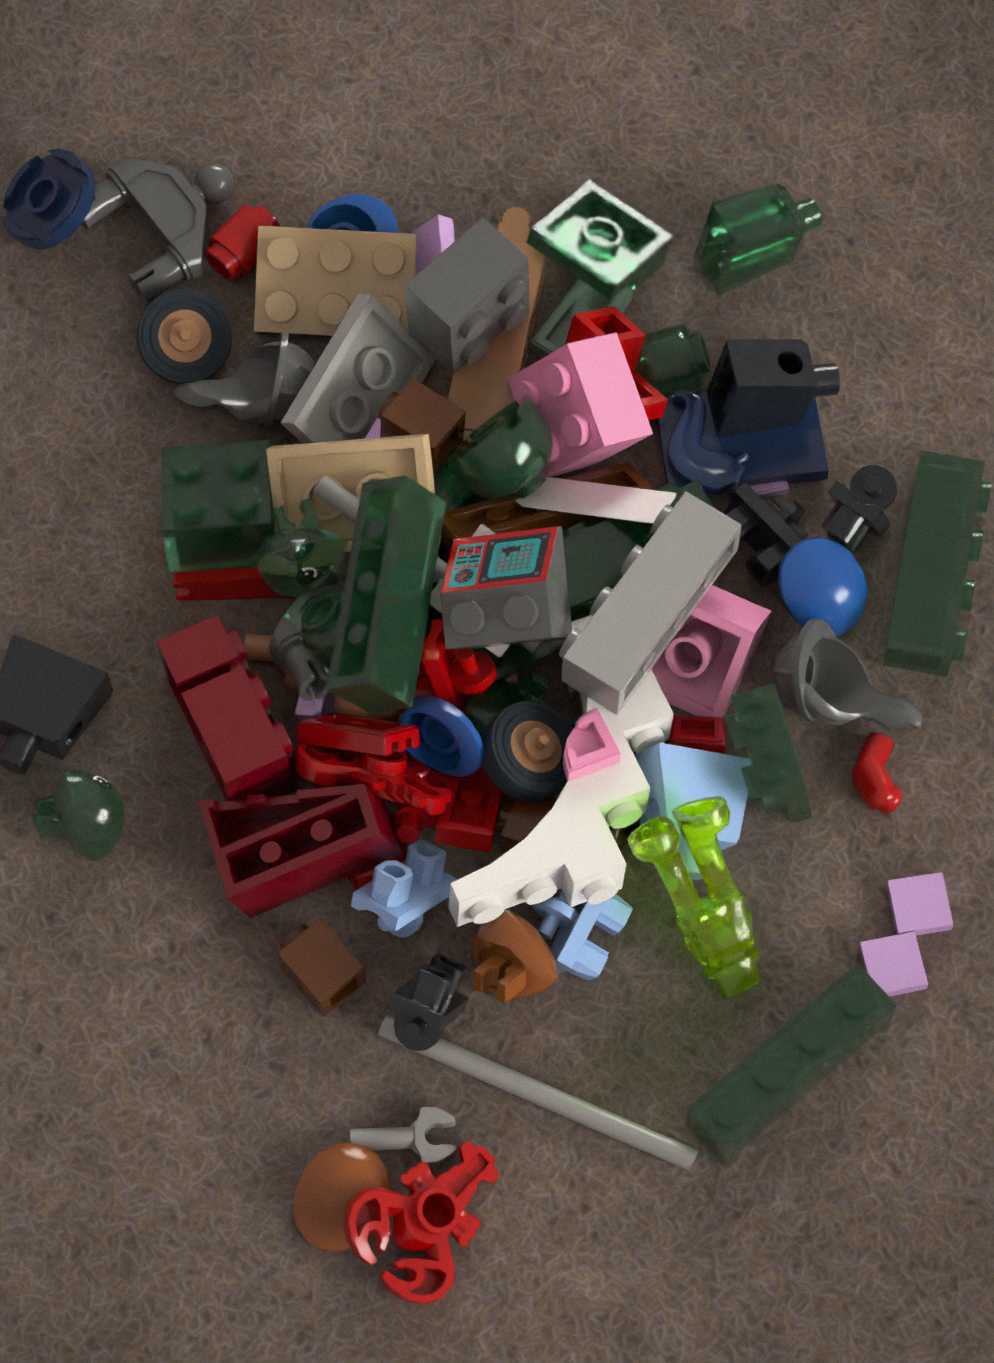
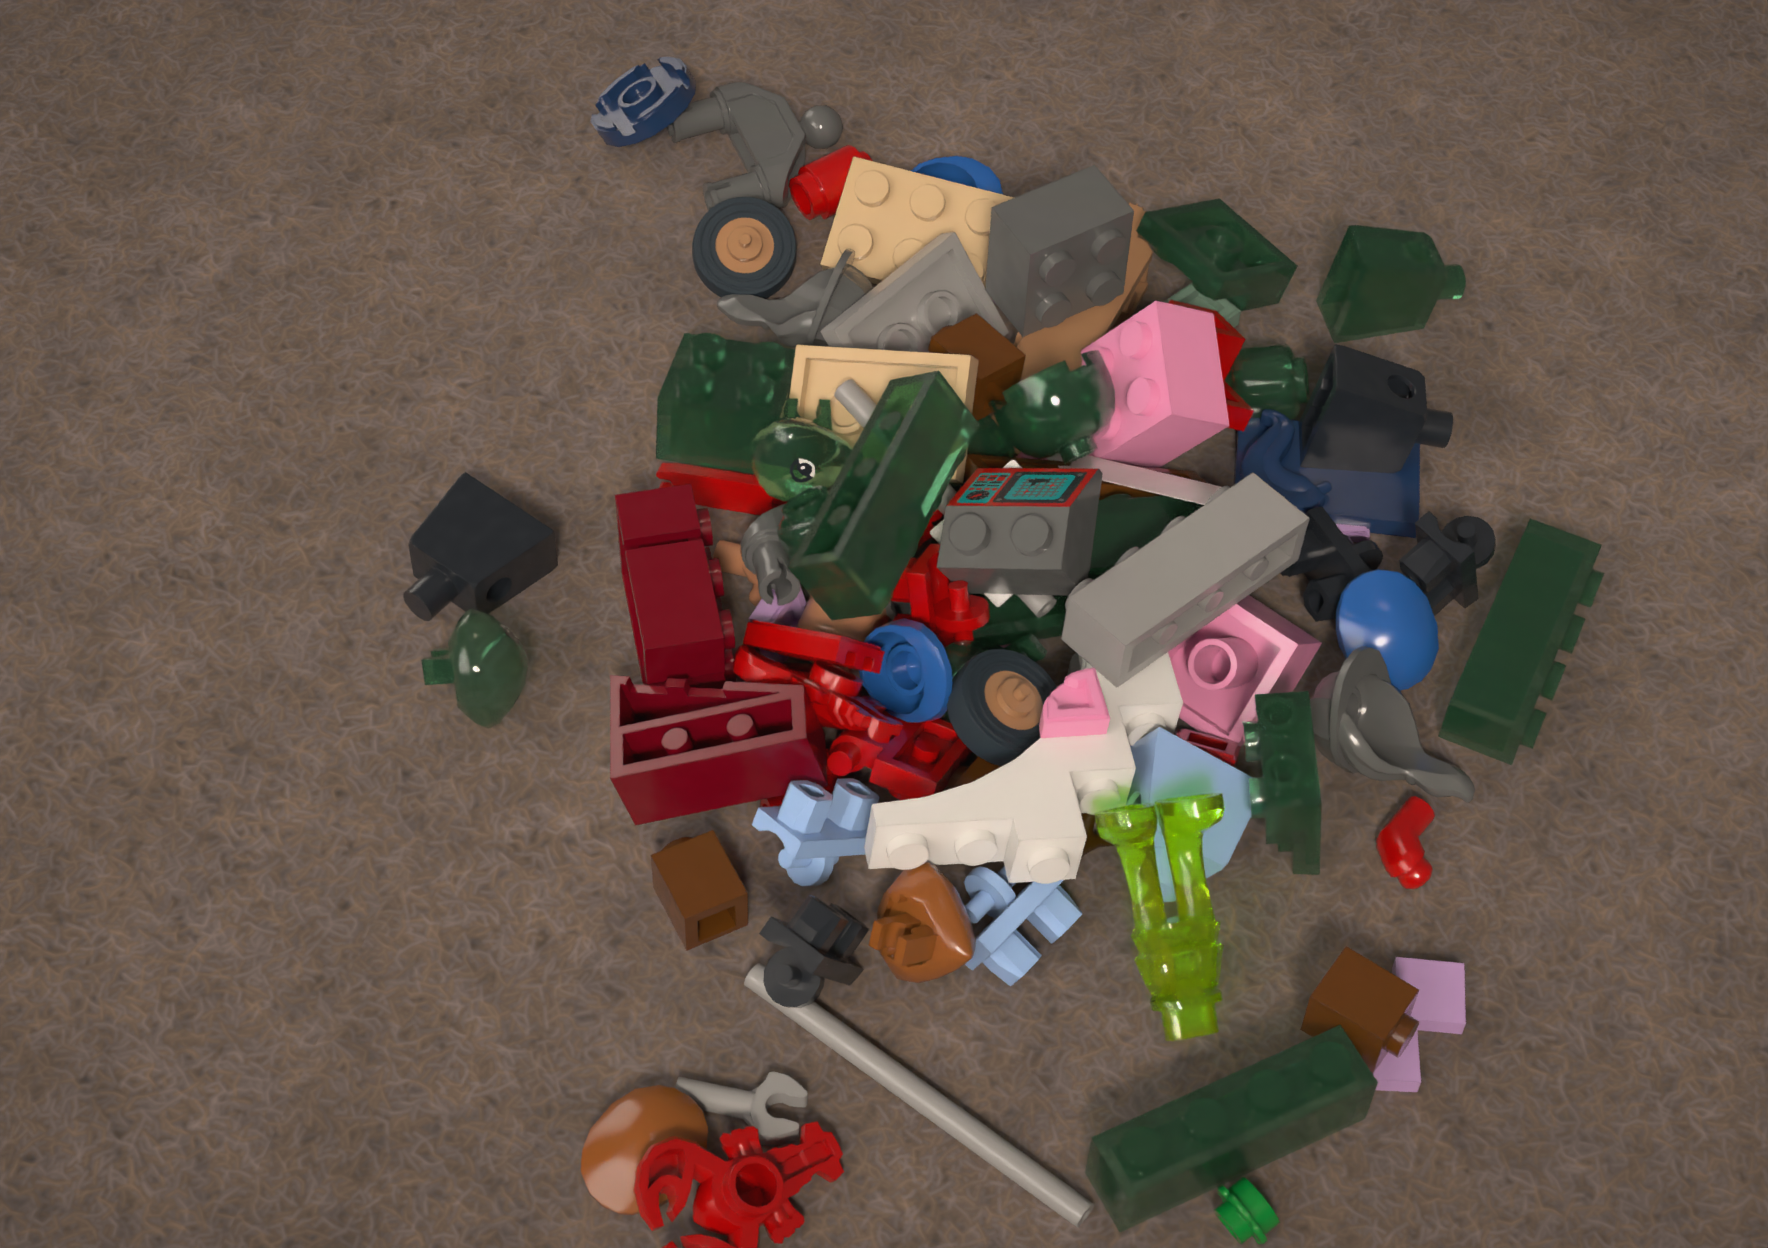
camera: 10 degrees right, 15 degrees down
(815, 1128) = (1245, 1212): none -> green plate
(873, 940) = (1367, 1004): none -> reddish brown brick

